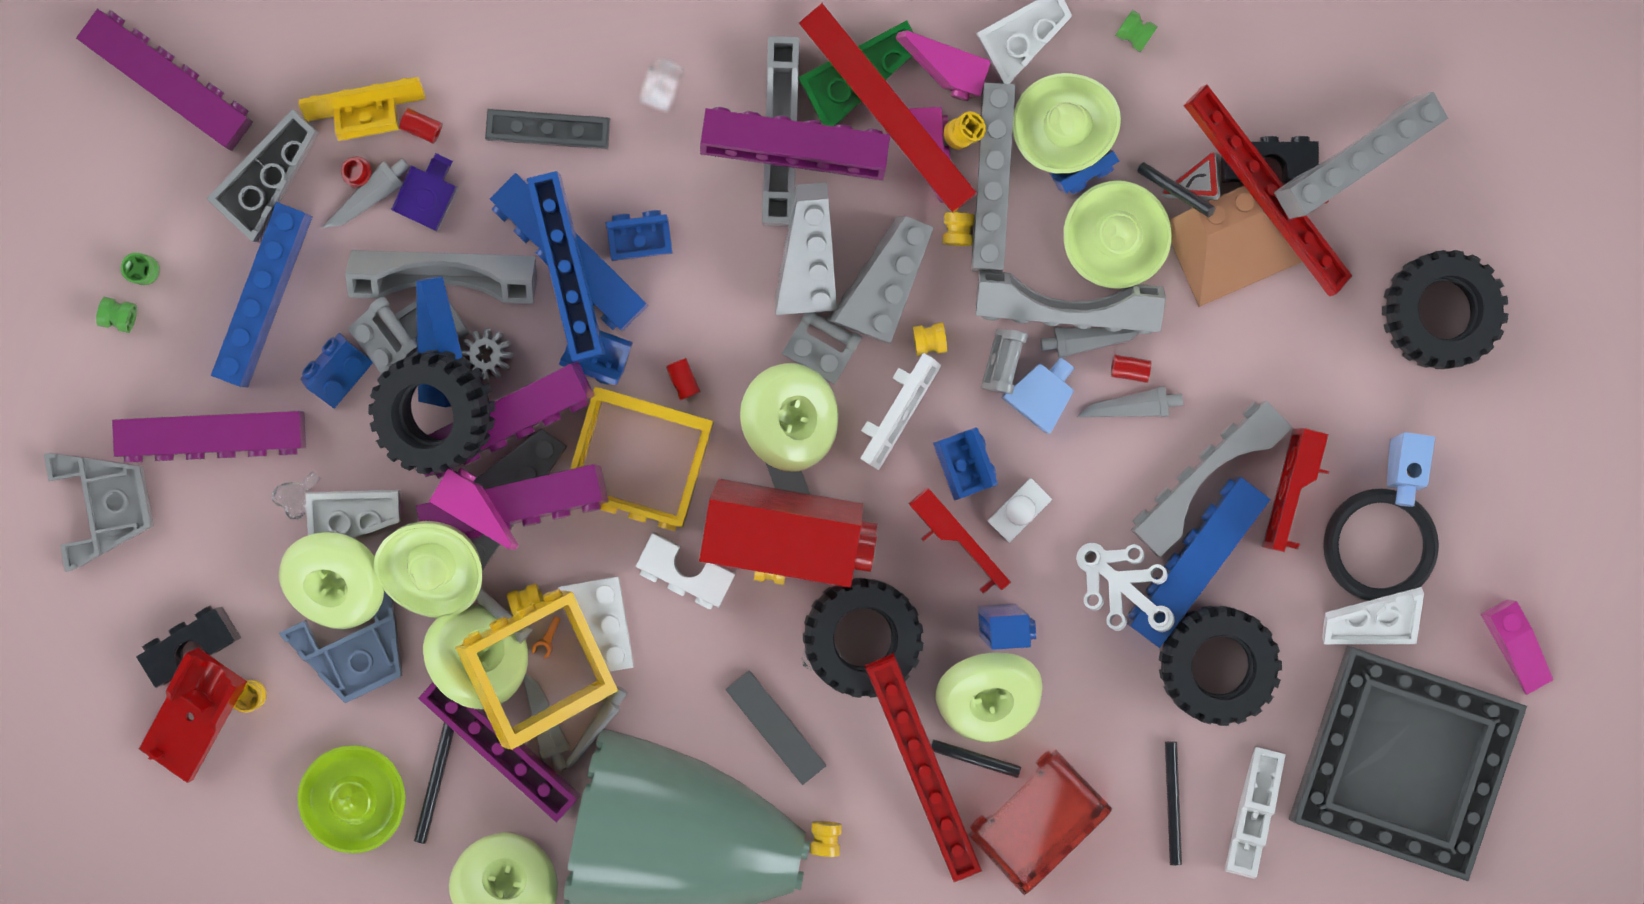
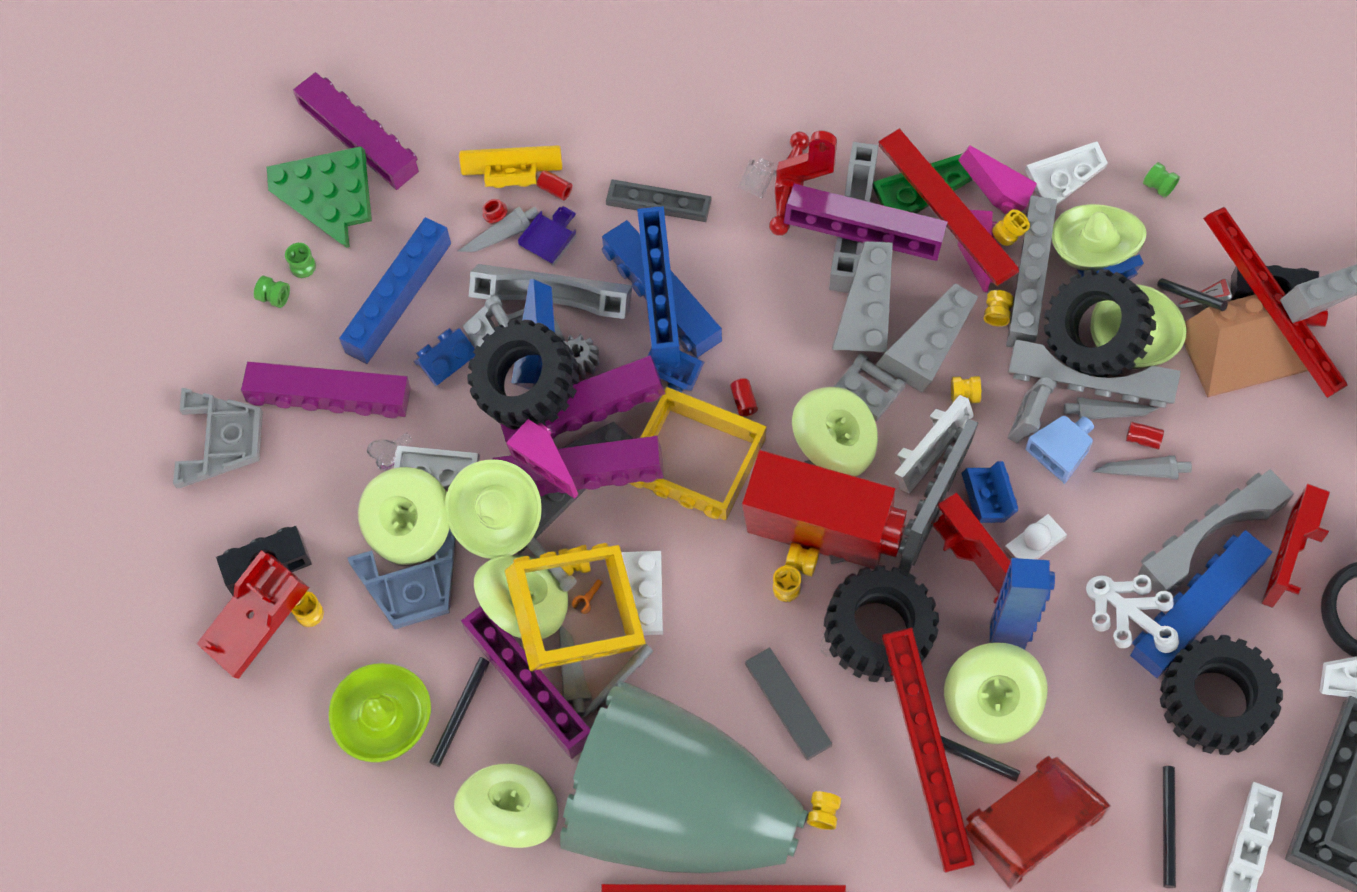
camera: 15 degrees right, 25 degrees down
(149, 171) = (326, 190): none -> green wing
(264, 175) = (420, 197): light grey wedge -> none
(639, 236) = (722, 281): blue bracket -> none
(659, 561) = (740, 567): white arch -> none
(703, 85) = (800, 168): none -> red piece
(758, 598) = (786, 577): none -> yellow wheel
(906, 483) = (927, 510): none -> dark grey wing
(1044, 276) = (1073, 303): none -> black tyre

